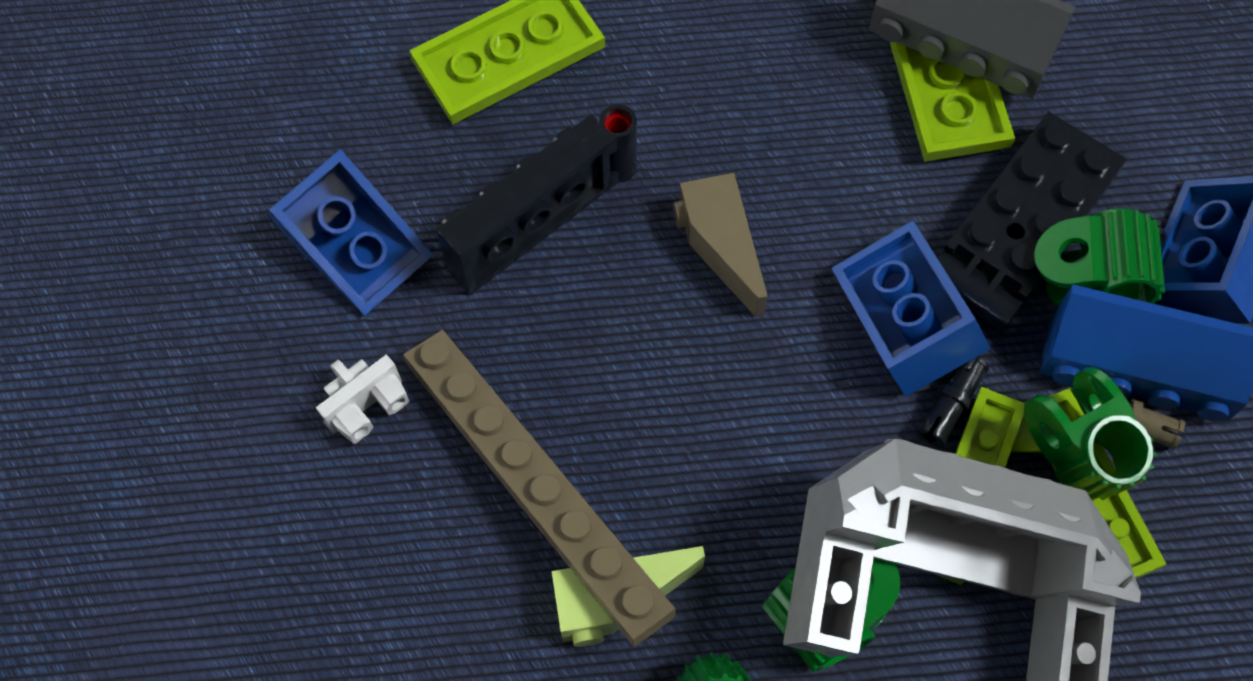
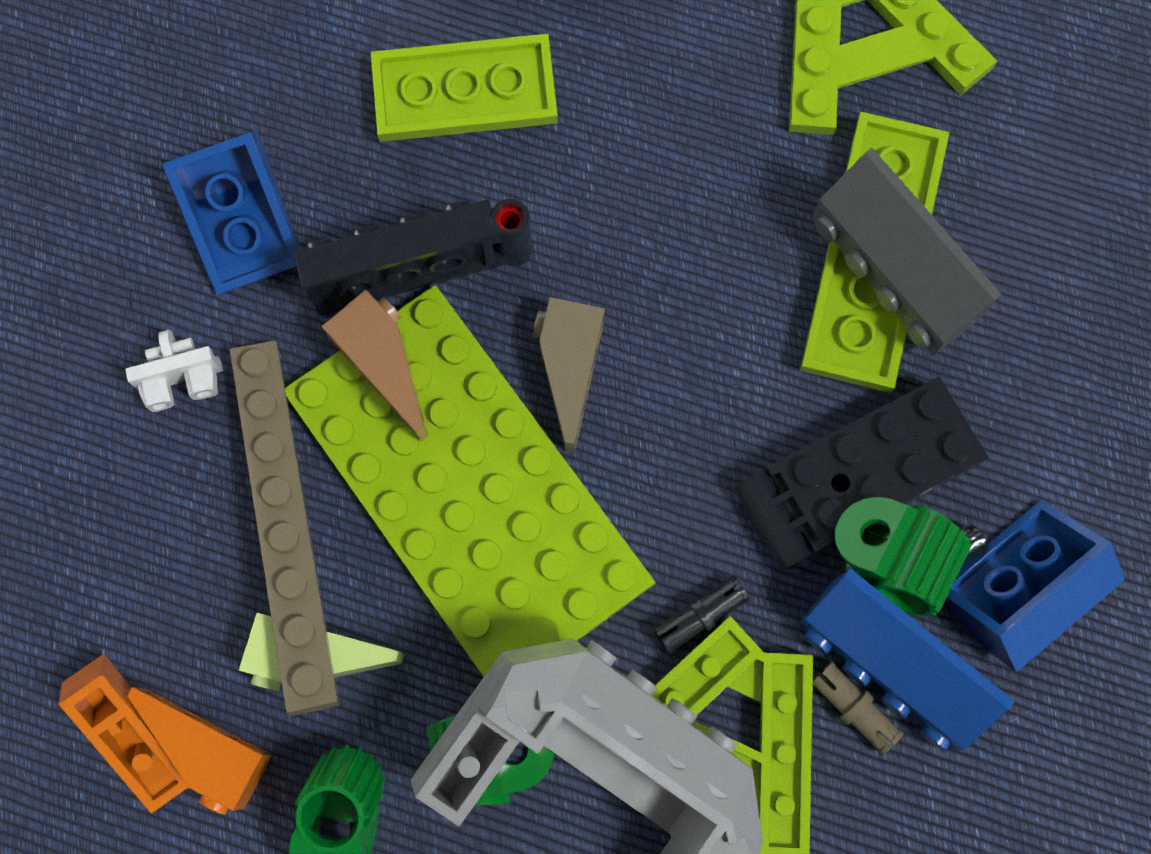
camera: 25 degrees right, 10 degrees up
(547, 291) = (375, 347): none -> medium nougat slope
(682, 383) = (481, 504): none -> lime plate
(910, 308) = (700, 513): blue slope -> none
(1111, 425) = (778, 709): green piece -> none

